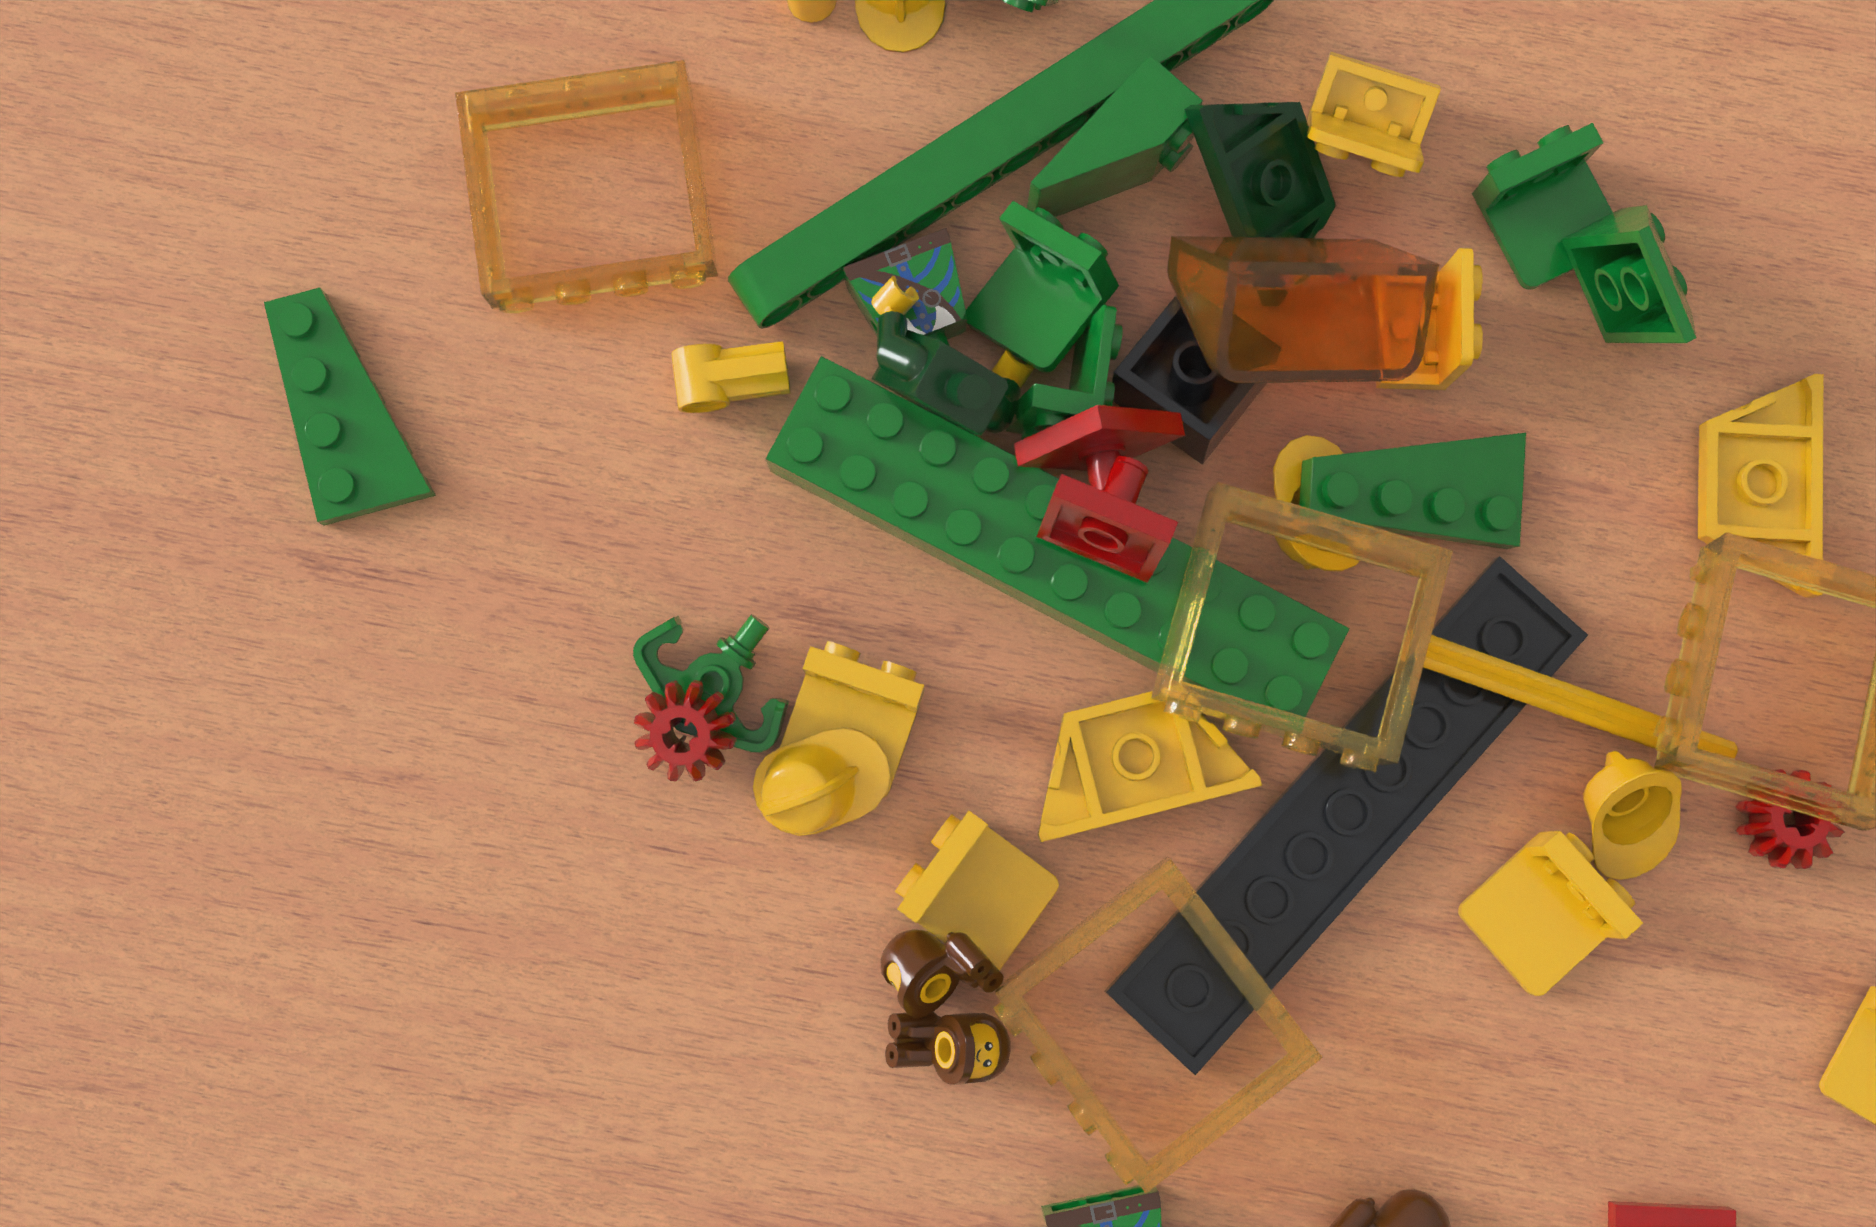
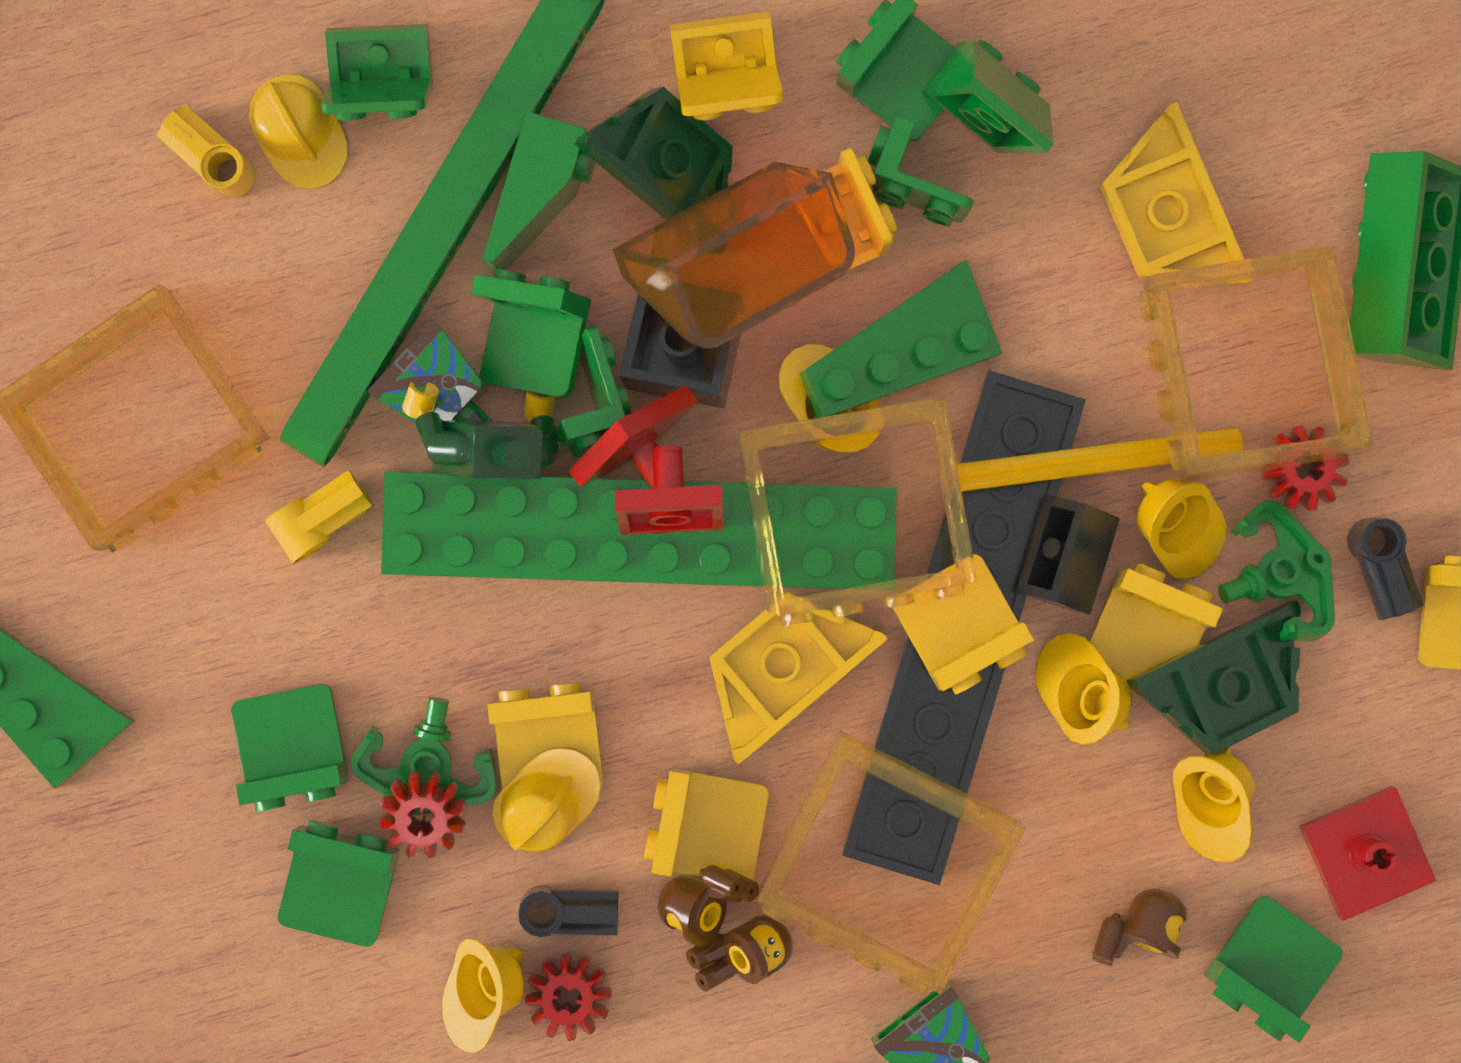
camera: 25 degrees left, 5 degrees up
(559, 762) = (337, 883): none -> green bracket
(580, 595) = (289, 746): none -> green bracket
(652, 949) = (479, 991): none -> yellow piece
(730, 1017) = (570, 979): none -> red gear
(795, 914) = (576, 911): none -> black piece
(1349, 814) = (964, 631): none -> yellow bracket
(1445, 938) = (1082, 689): none -> yellow piece
(1497, 787) = (1068, 554): none -> black brick
(1523, 348) = (898, 188): none -> green bracket
(1532, 1133) = (1215, 804): none -> yellow piece
(1607, 1008) = (1228, 683): none -> dark green wing
(1726, 919) = (1293, 569): none -> green piece
(1830, 973) = (1387, 572): none -> black piece

